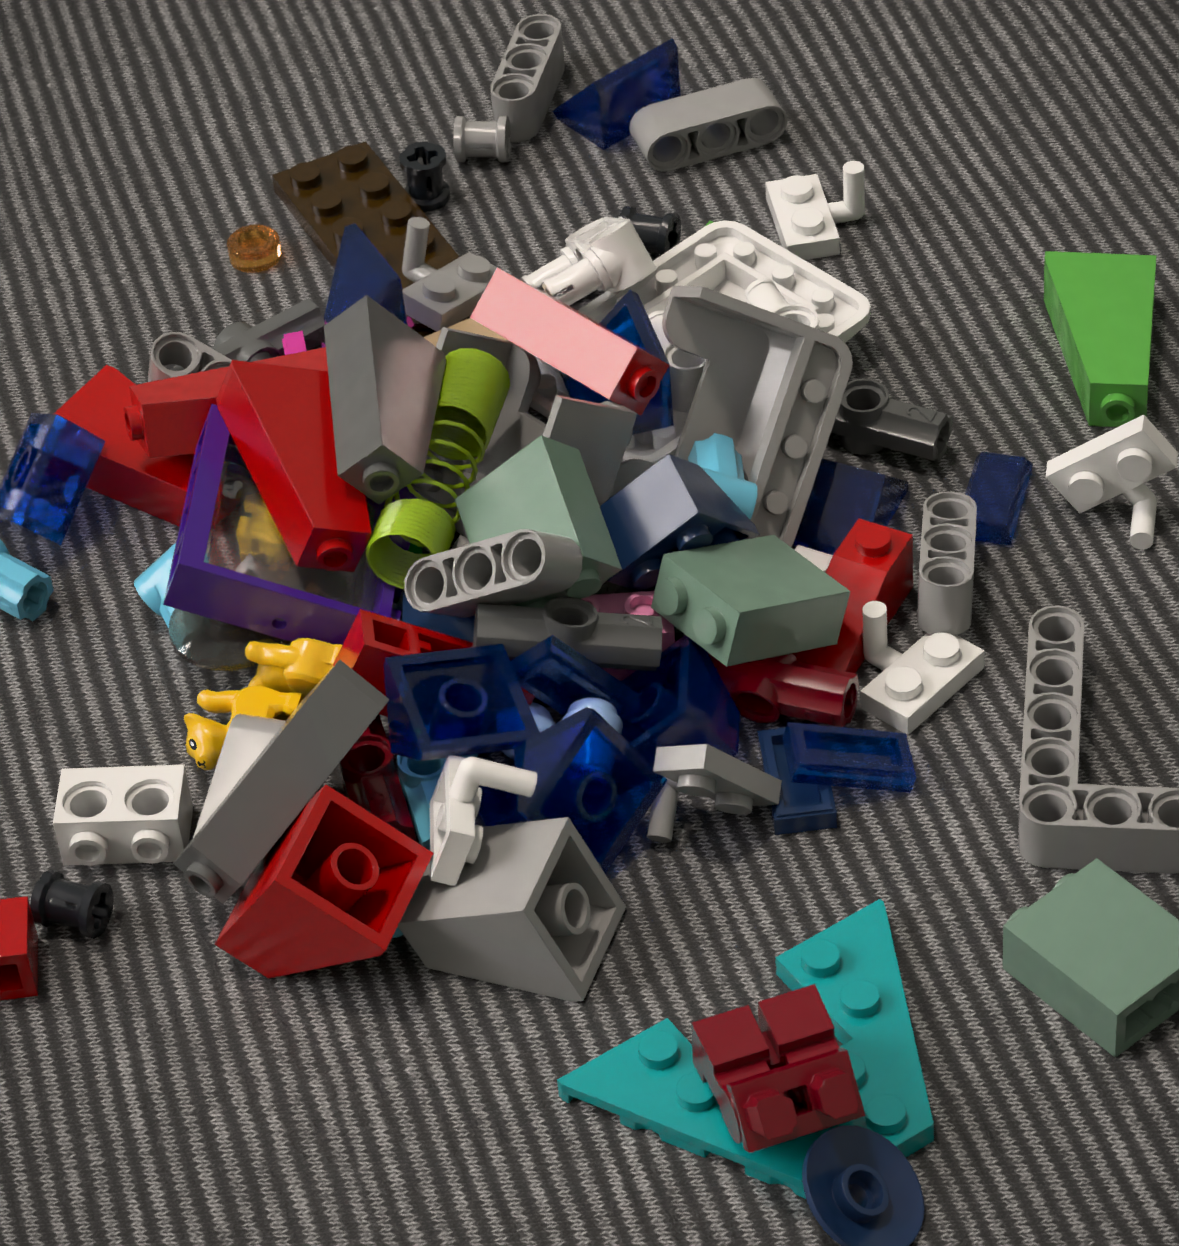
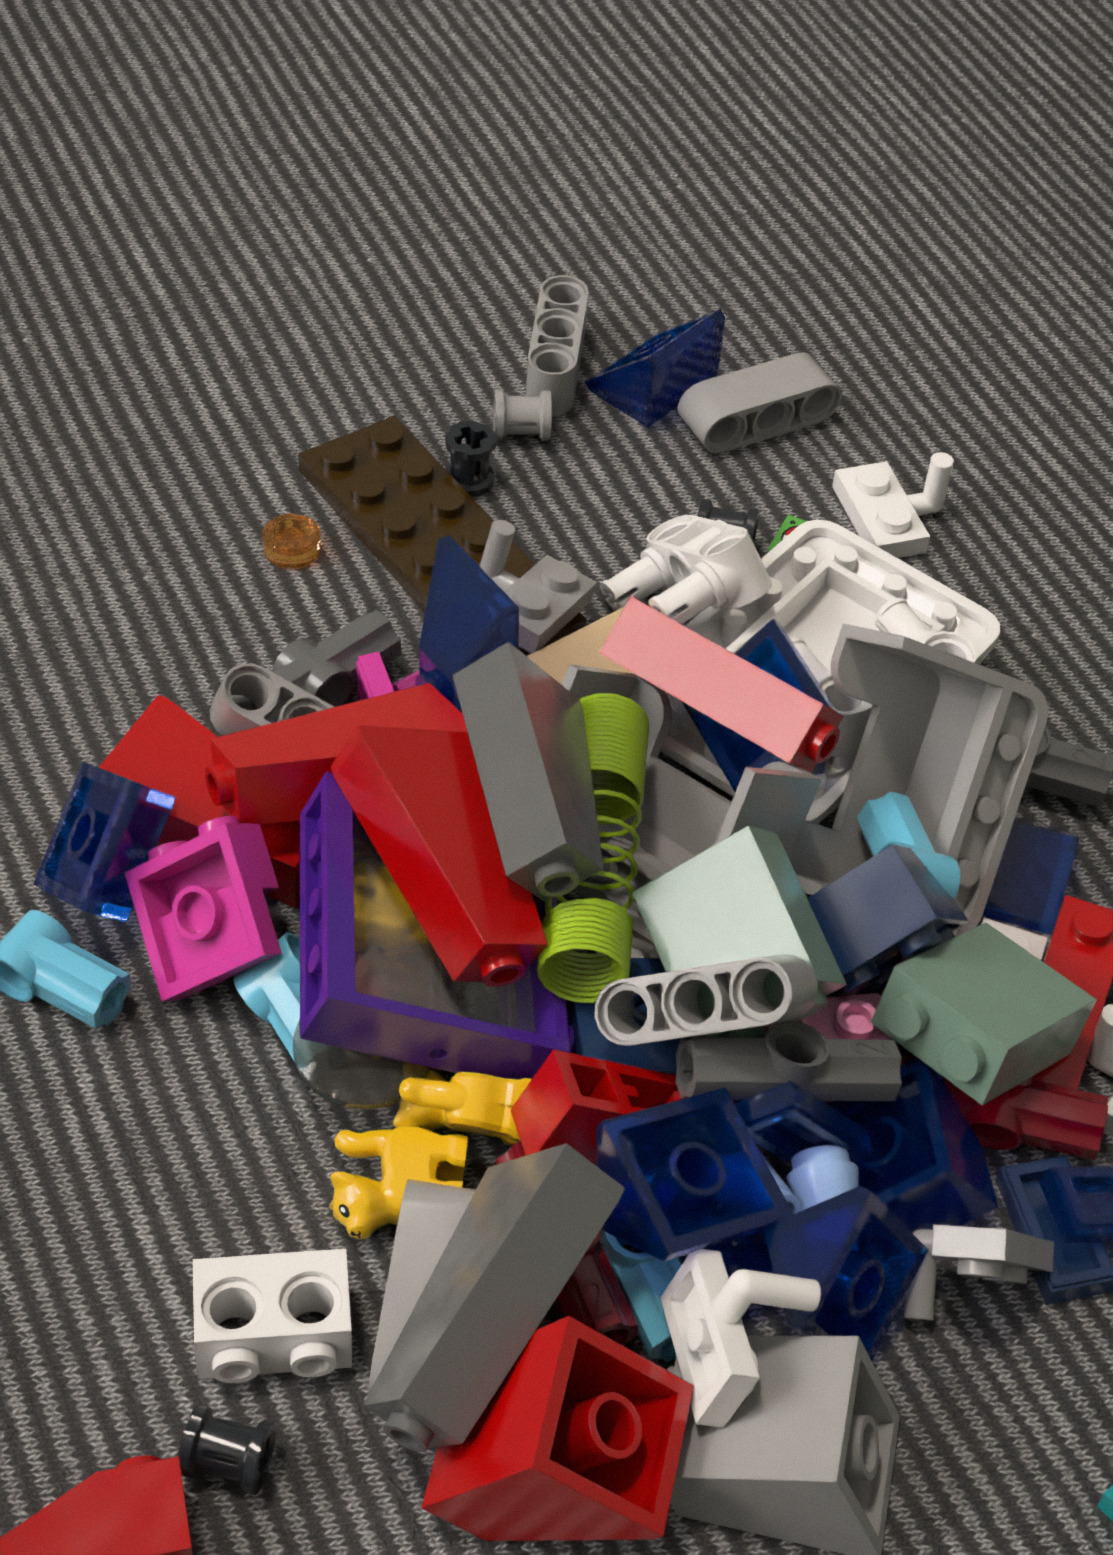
camera: 15 degrees left, 5 degrees up
(115, 521) = (205, 906): none -> dark pink plate

